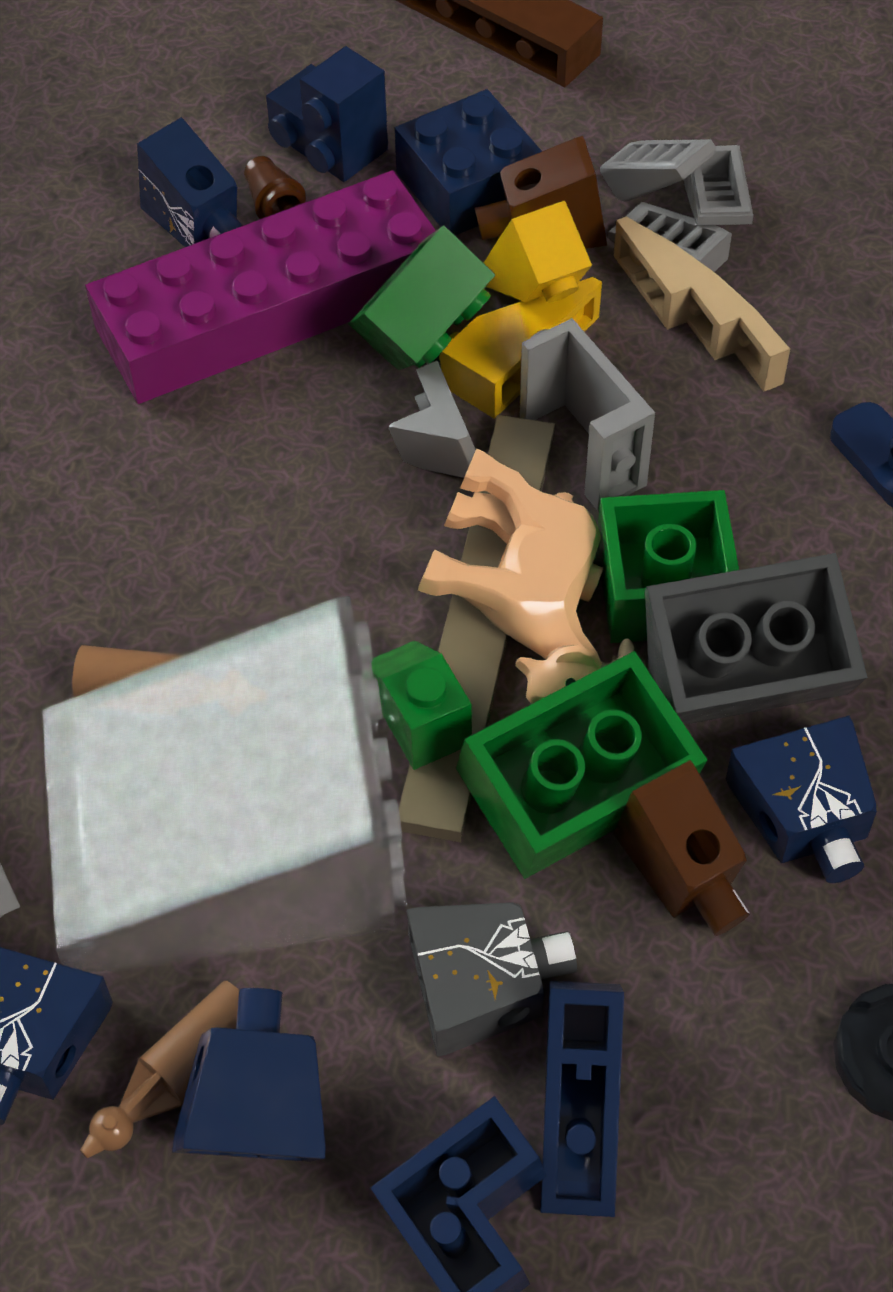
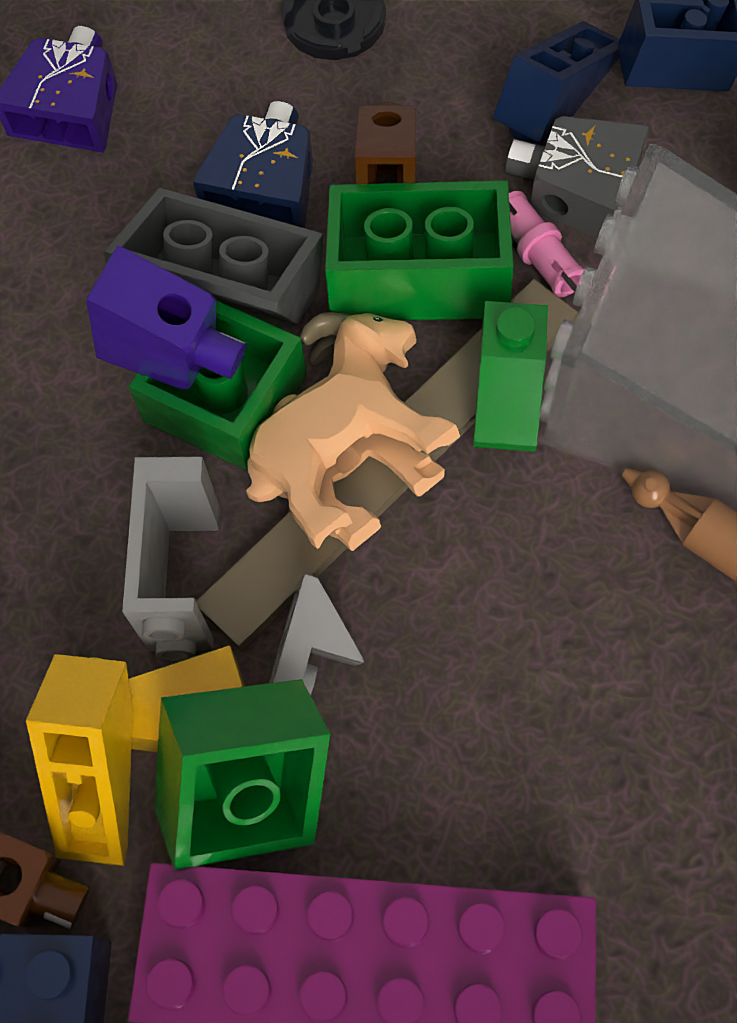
camera: 145 degrees left, 10 degrees up
(477, 872) = (541, 245): none -> bright pink pin
(721, 498) = (157, 323): none -> dark purple torso

